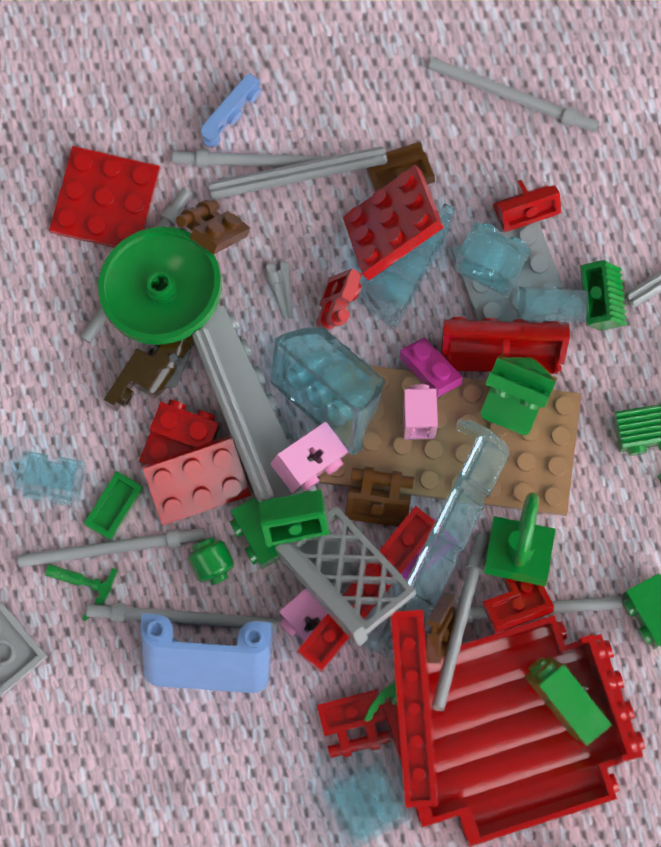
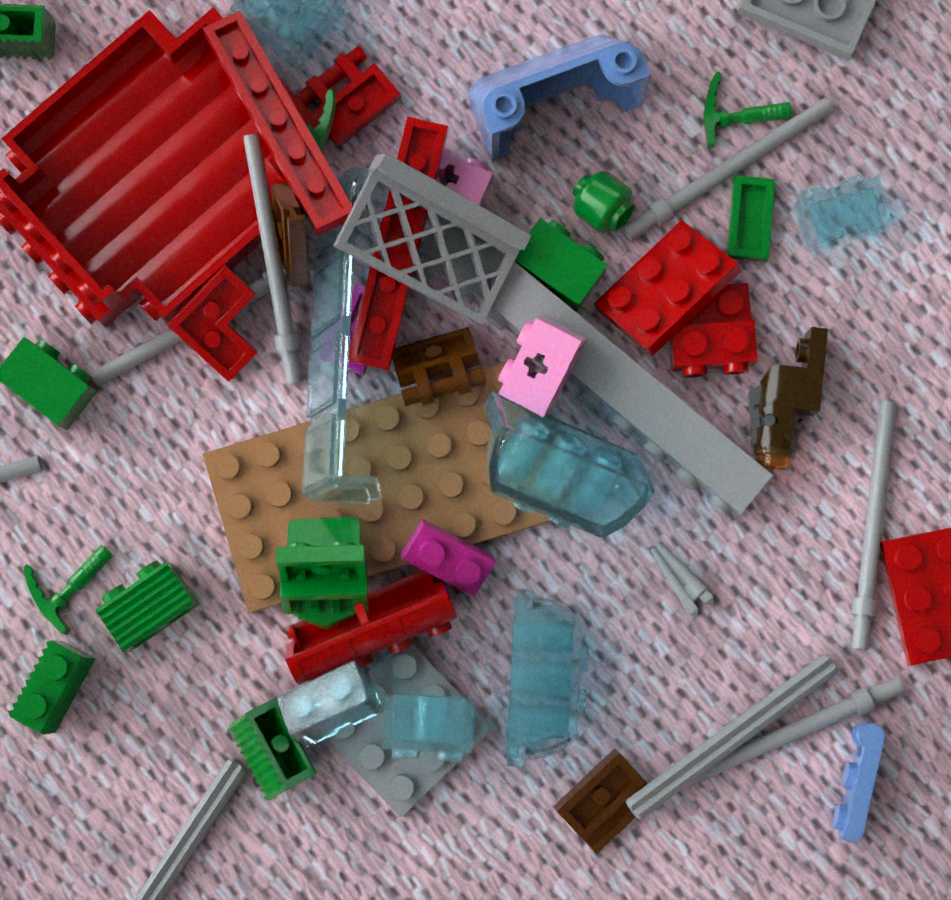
camera: 160 degrees right, 5 degrees up
(120, 613) = (679, 96): light grey bar -> none
(159, 286) = (831, 501): green dish -> none
(211, 228) = (792, 608): reddish brown plate -> none
(232, 415) = (662, 378): light grey axle -> none
(293, 518) = (526, 278): green brick -> none
(337, 294) = (604, 593): red plate -> none
(392, 222) = (578, 714): red plate -> none
(420, 412) = (432, 480): bright pink brick -> none
(520, 547) = (240, 383): green tile -> none
(527, 206) = (420, 827): red panel -> none
(567, 699) = (101, 213): green brick -> none

